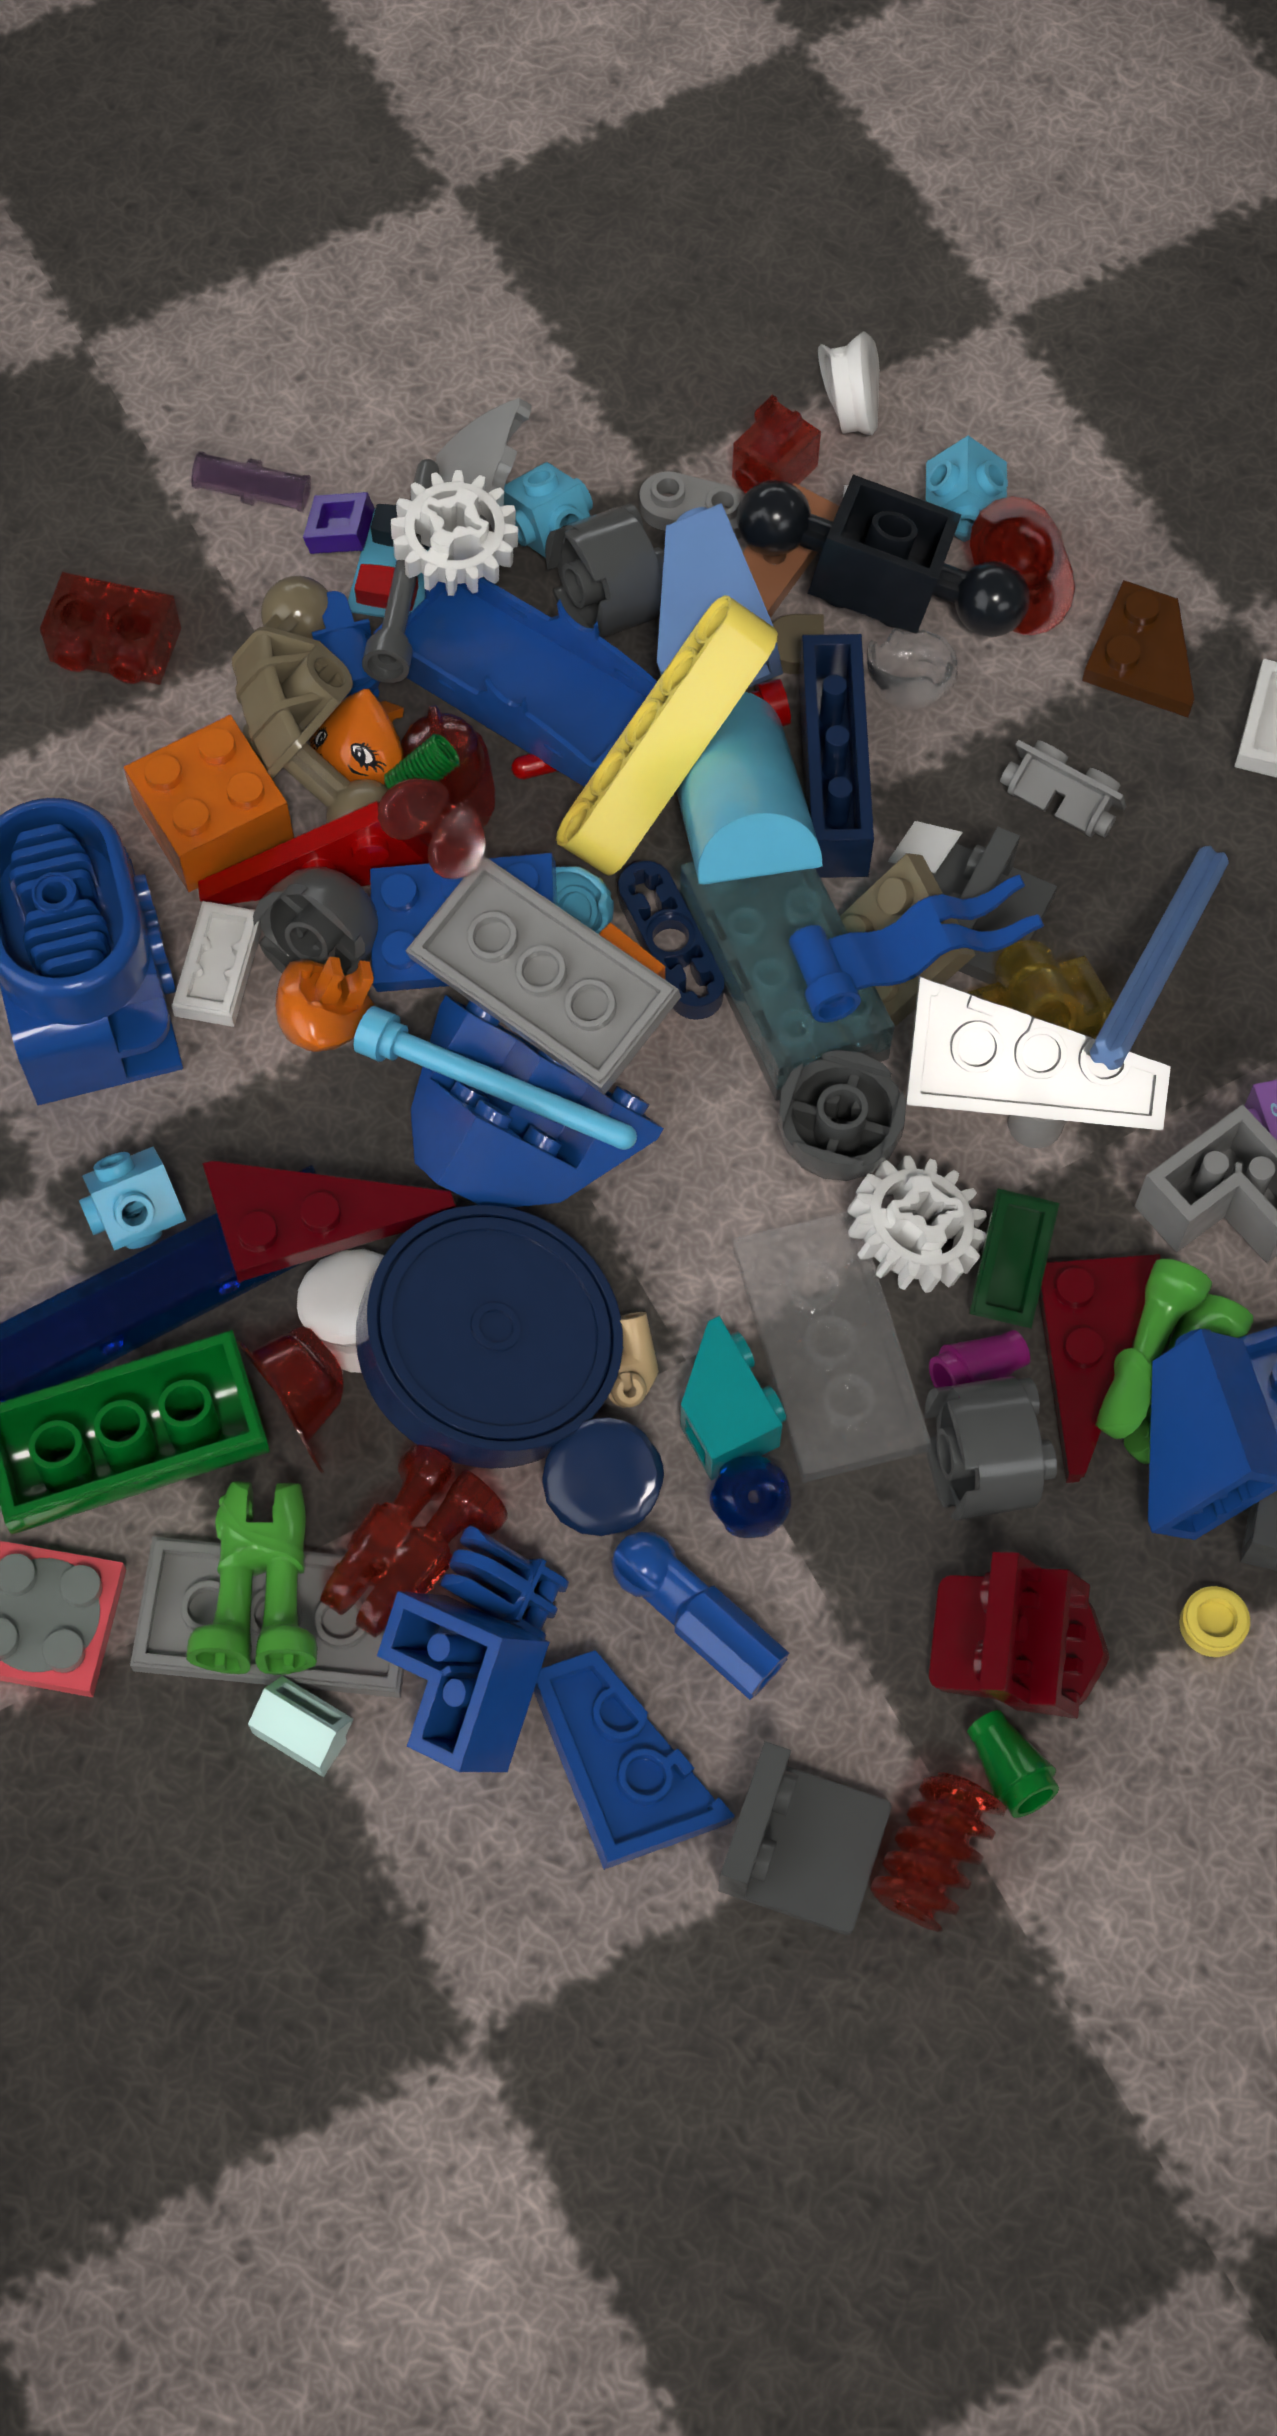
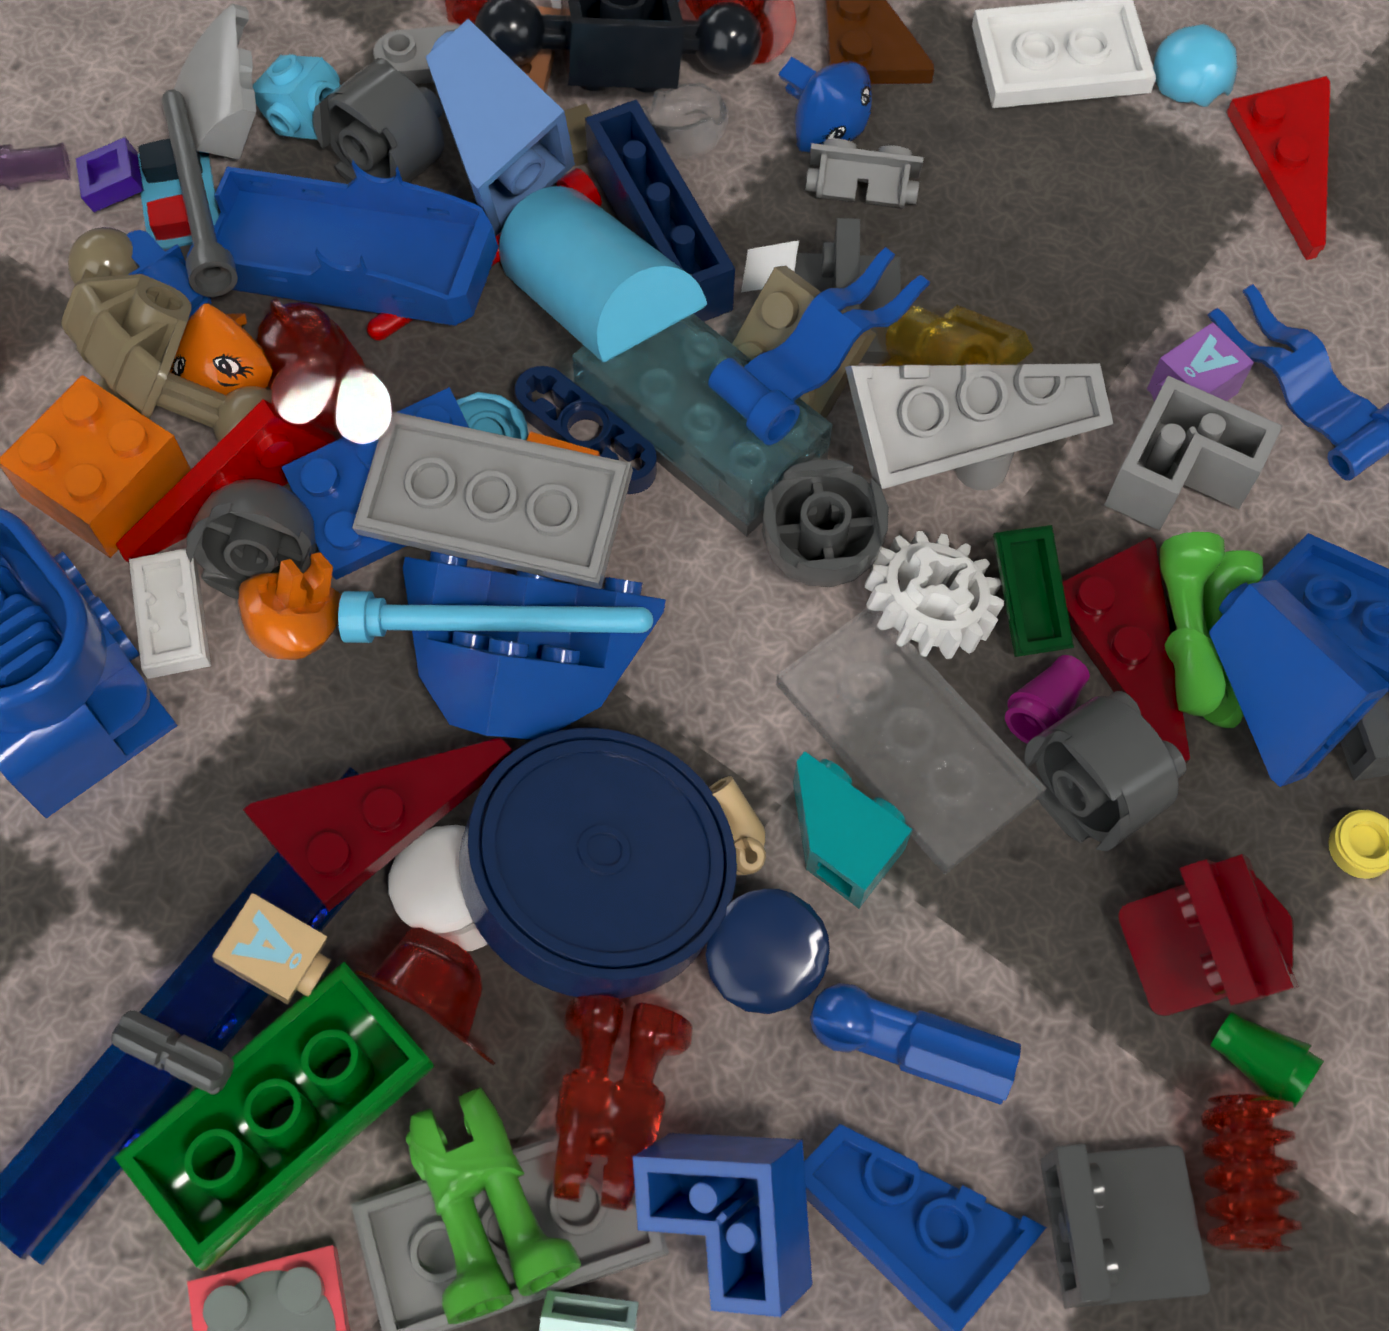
camera: 25 degrees left, 0 degrees up
(61, 1345) = (175, 1053): none -> dark grey piece
(131, 1199) = (182, 873): medium azure brick -> none
(175, 1293) = (273, 950): none -> tan brick
(432, 749) = (293, 332): green piece -> none
(457, 536) = (225, 138): white gear -> none
(503, 1582) = (733, 1093): blue arm -> none
(667, 735) = (508, 243): light yellow beam -> none
(731, 1501) = (890, 909): clear blue plate -> none
(1063, 704) = (831, 101): none -> blue piece
(1158, 959) = (1034, 283): medium blue axle -> none

